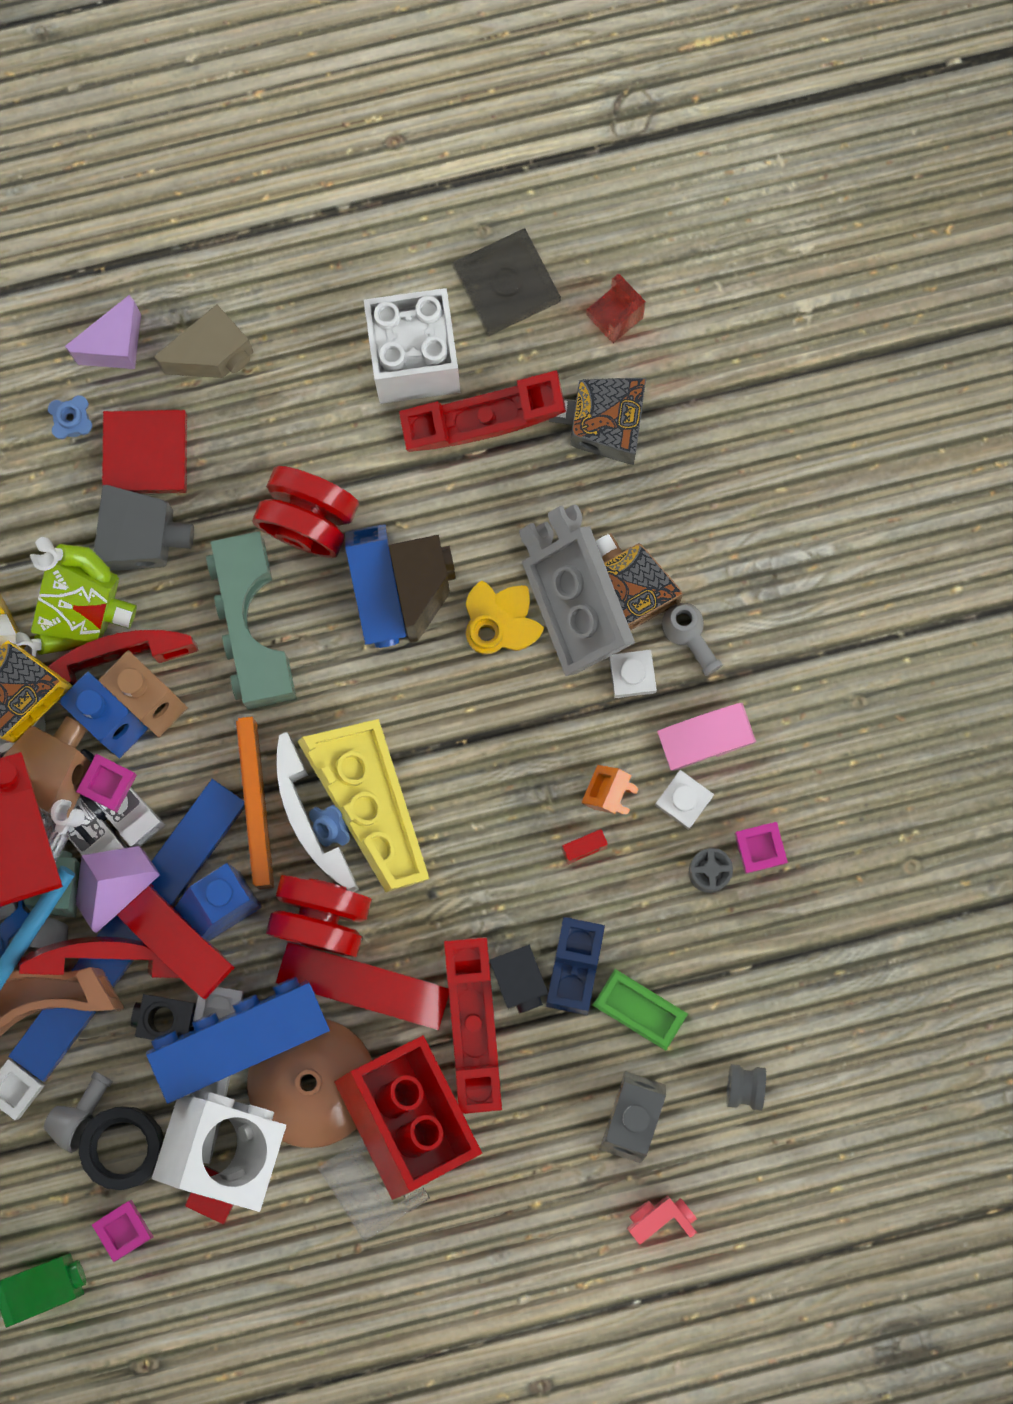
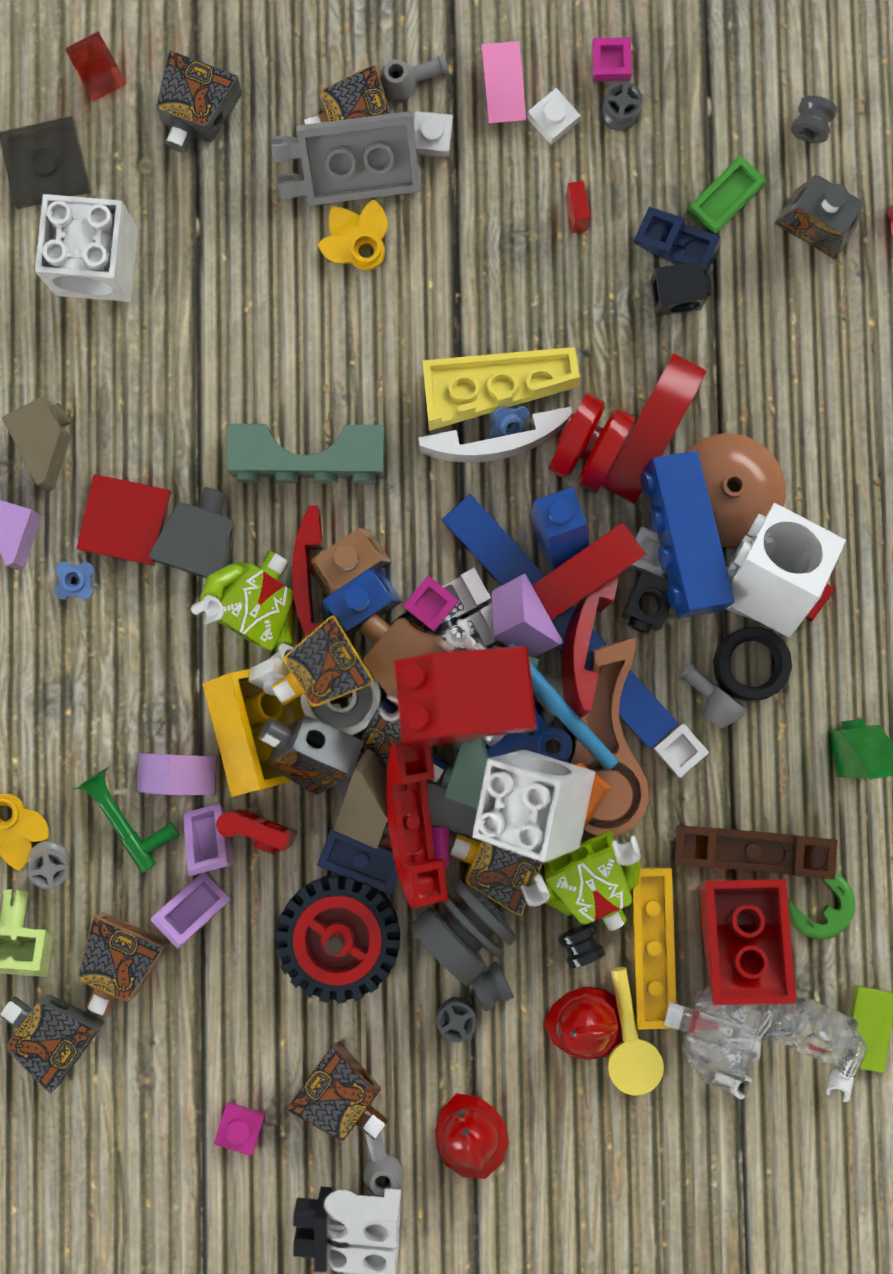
camera: 85 degrees left, 5 degrees up
(122, 1231) = (823, 678): dark pink plate -> none
(255, 803) = (472, 483): orange tile -> none
(305, 511) = (219, 377): red wheel -> none
(363, 1194) = (830, 466): clear plate -> none
(375, 586) = (299, 333): blue slope -> none
(408, 1117) = (784, 403): red brick -> none
(422, 580) = (310, 290): dark brown slope -> none
(473, 1025) = (712, 339): red slope -> none
(484, 415) = (165, 203): red slope -> none
(607, 790) = (531, 175): orange tile -> none

